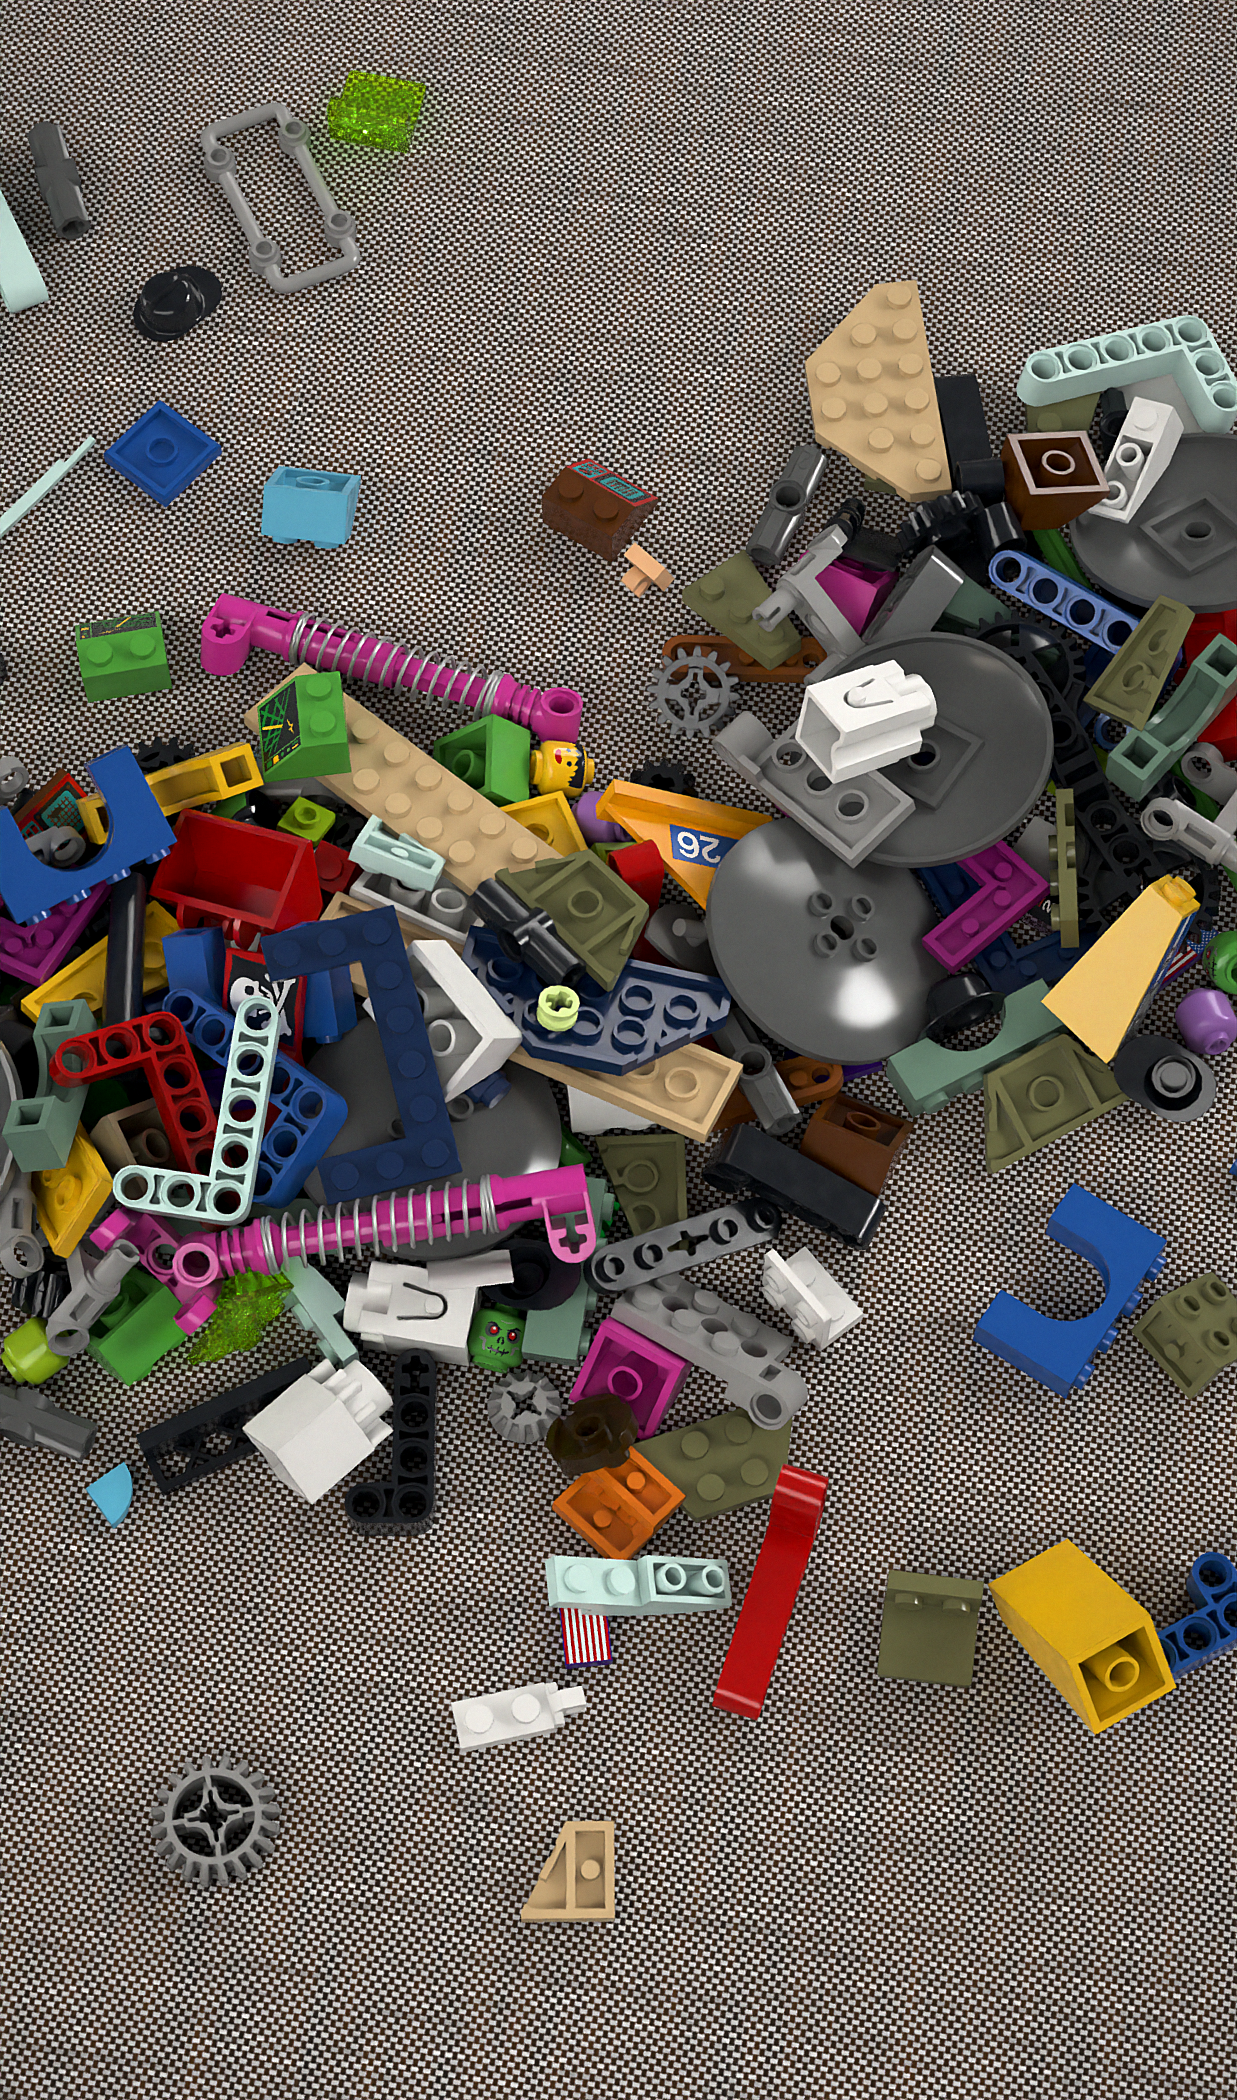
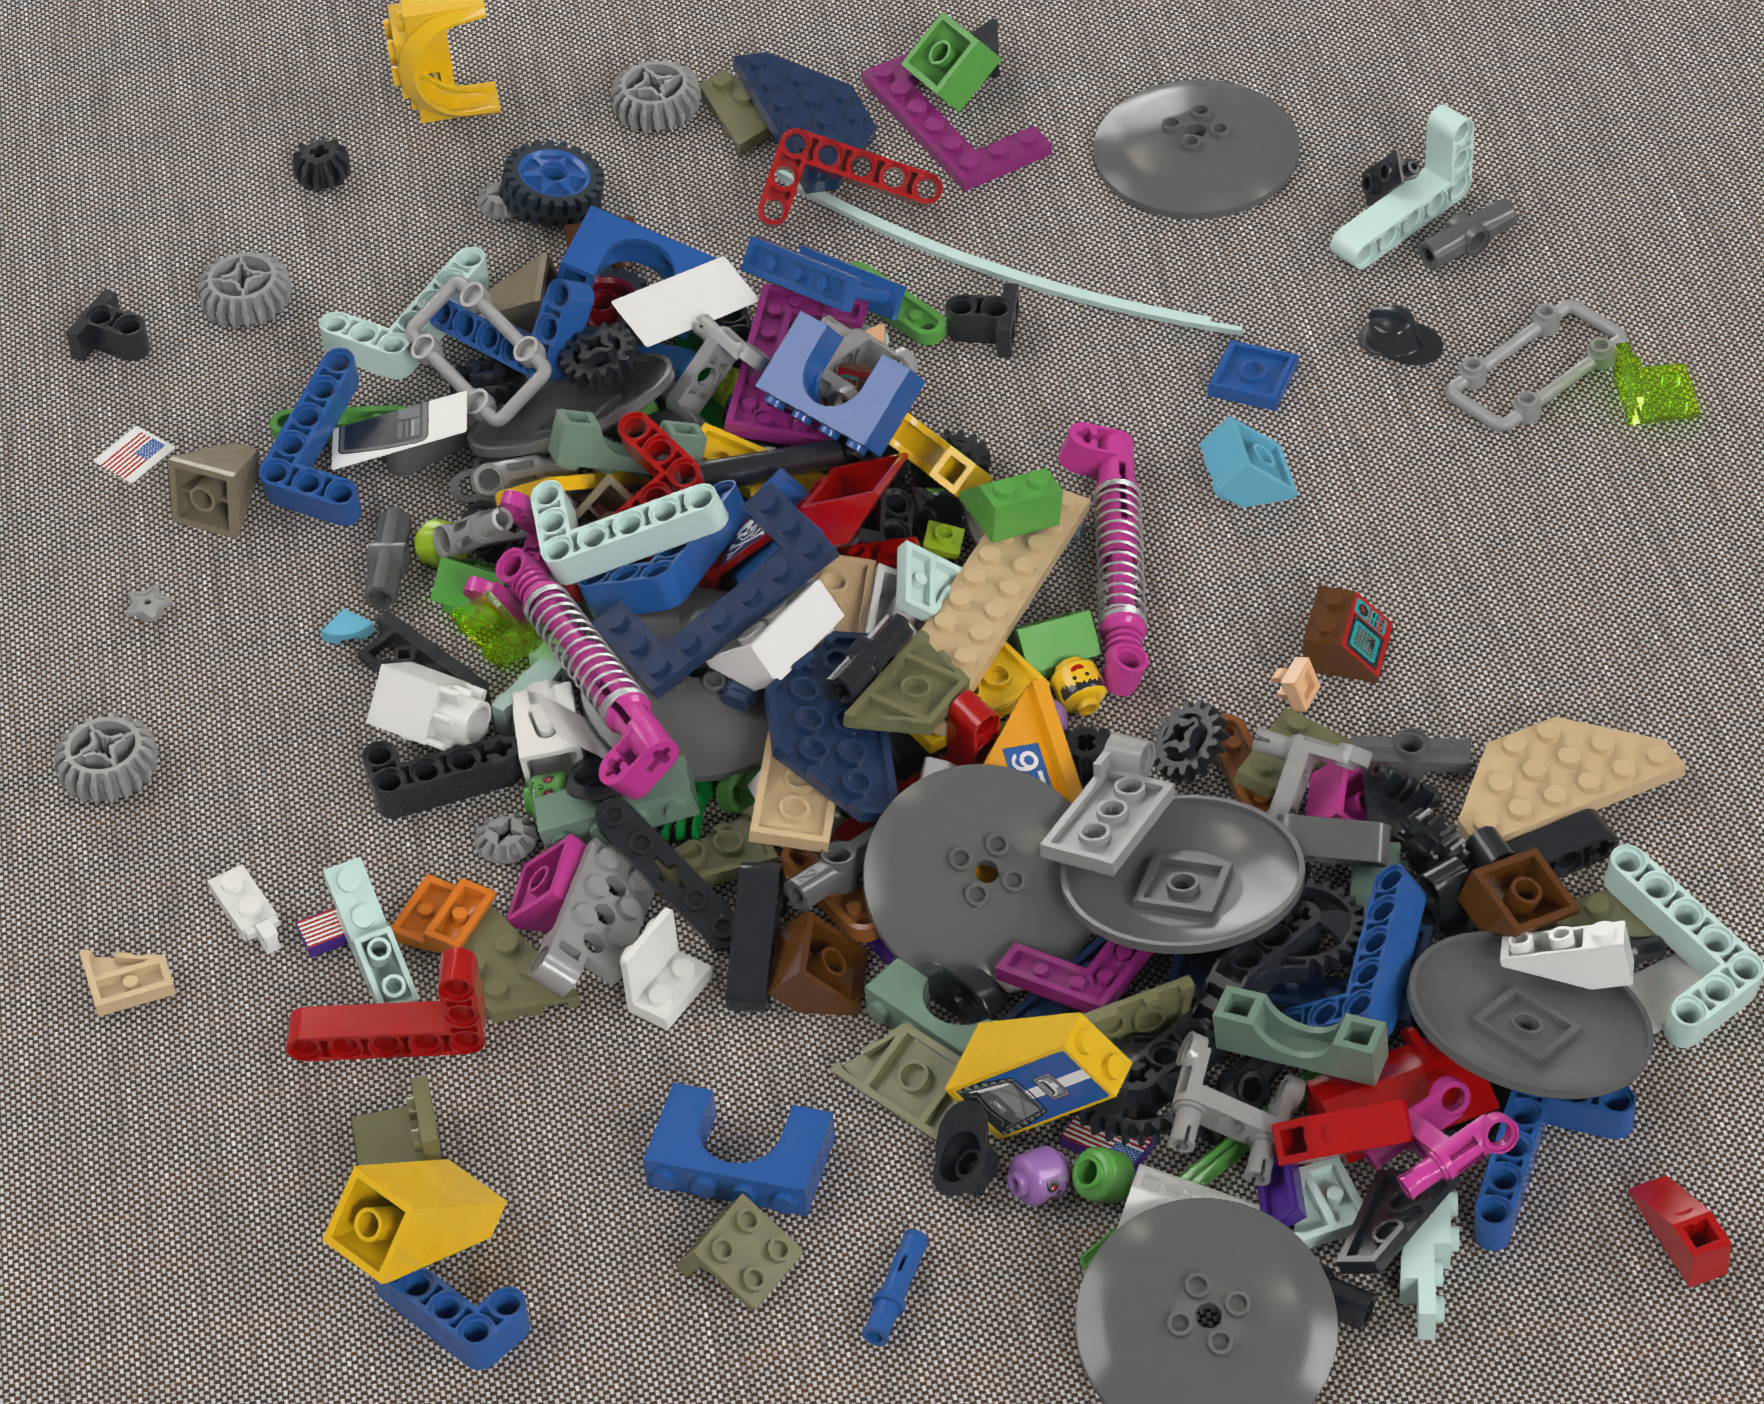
camera: 75 degrees right, 20 degrees down
(123, 656) = (1050, 404): bright green slope -> none
(566, 1016) = (811, 682): yellowish green bush -> none
(580, 1448) = (483, 869): dark brown plate -> none
(864, 719) = (1168, 803): white piece -> none
(1142, 664) = (1333, 983): olive wing -> none

